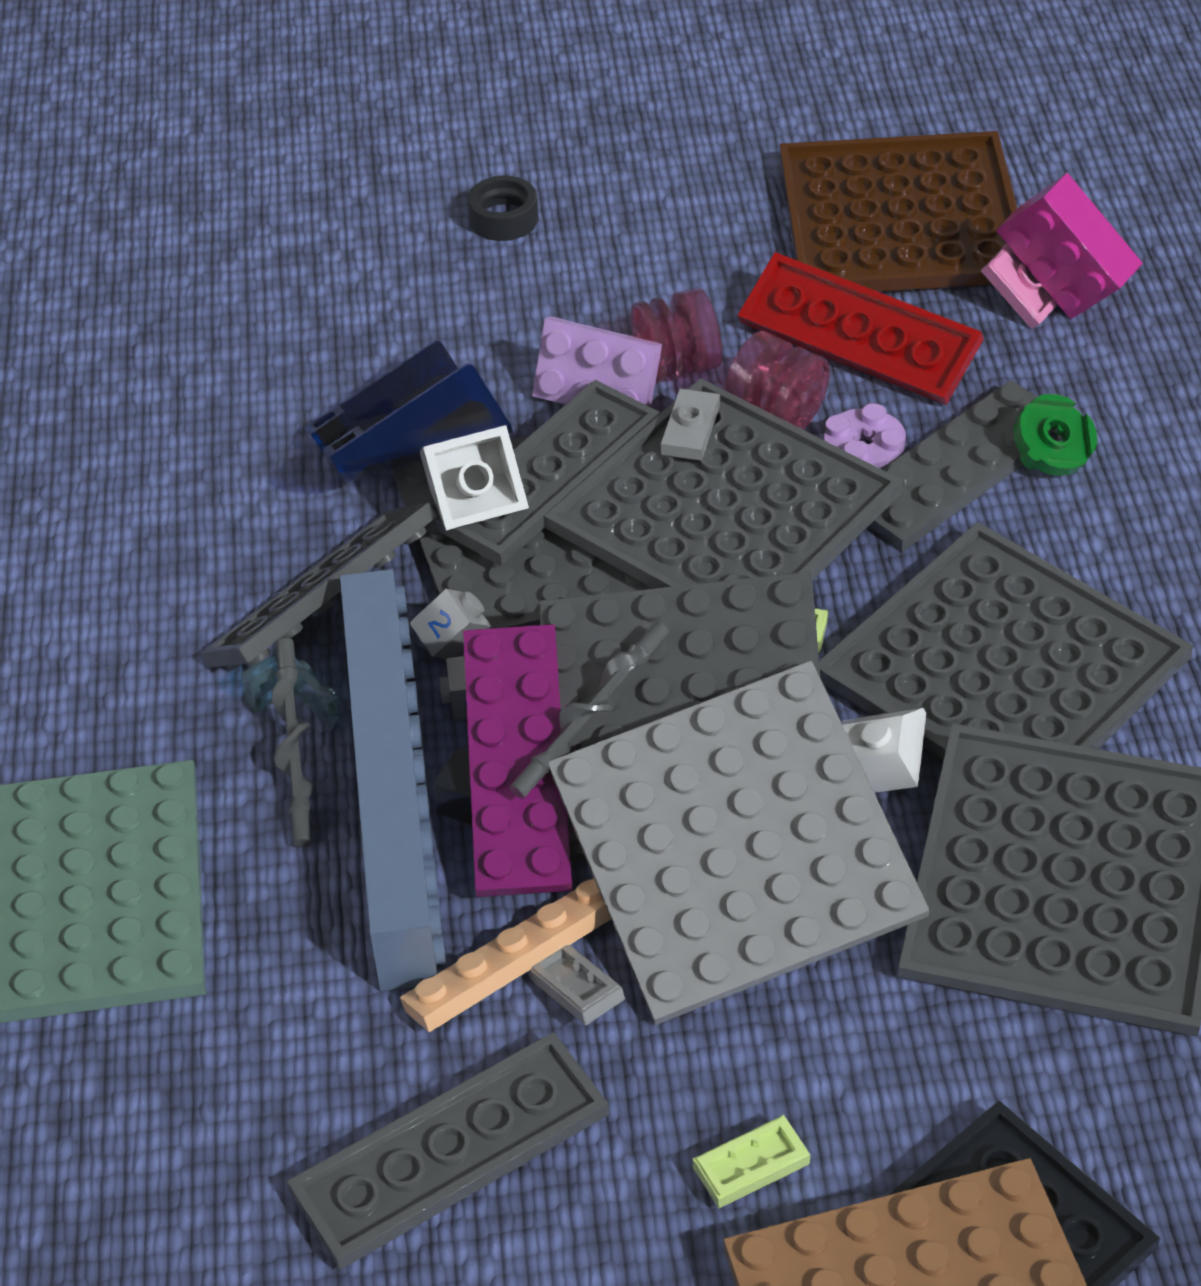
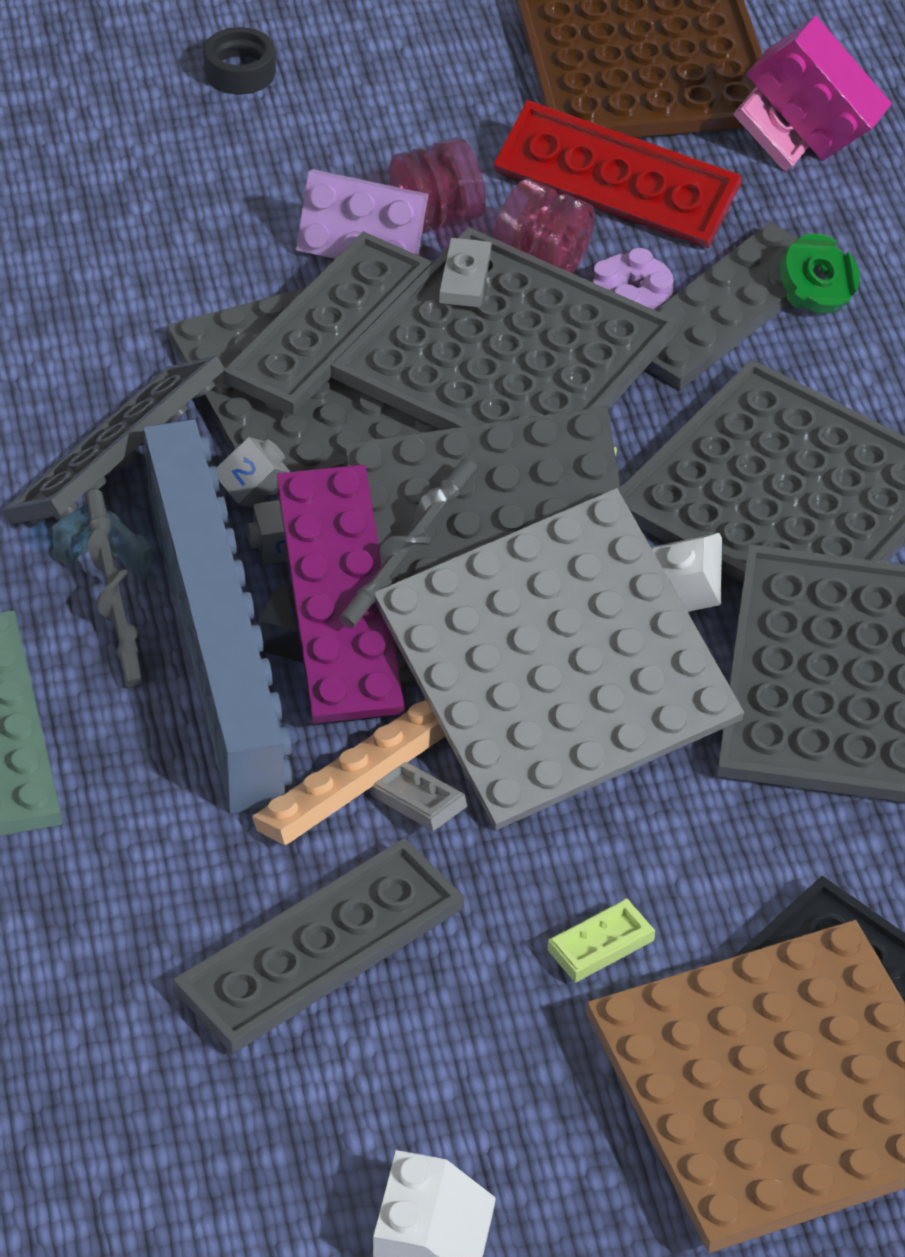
camera: 10 degrees left, 0 degrees up
(402, 412) = (181, 273): windscreen -> none
(474, 477) = (259, 329): white slope -> none

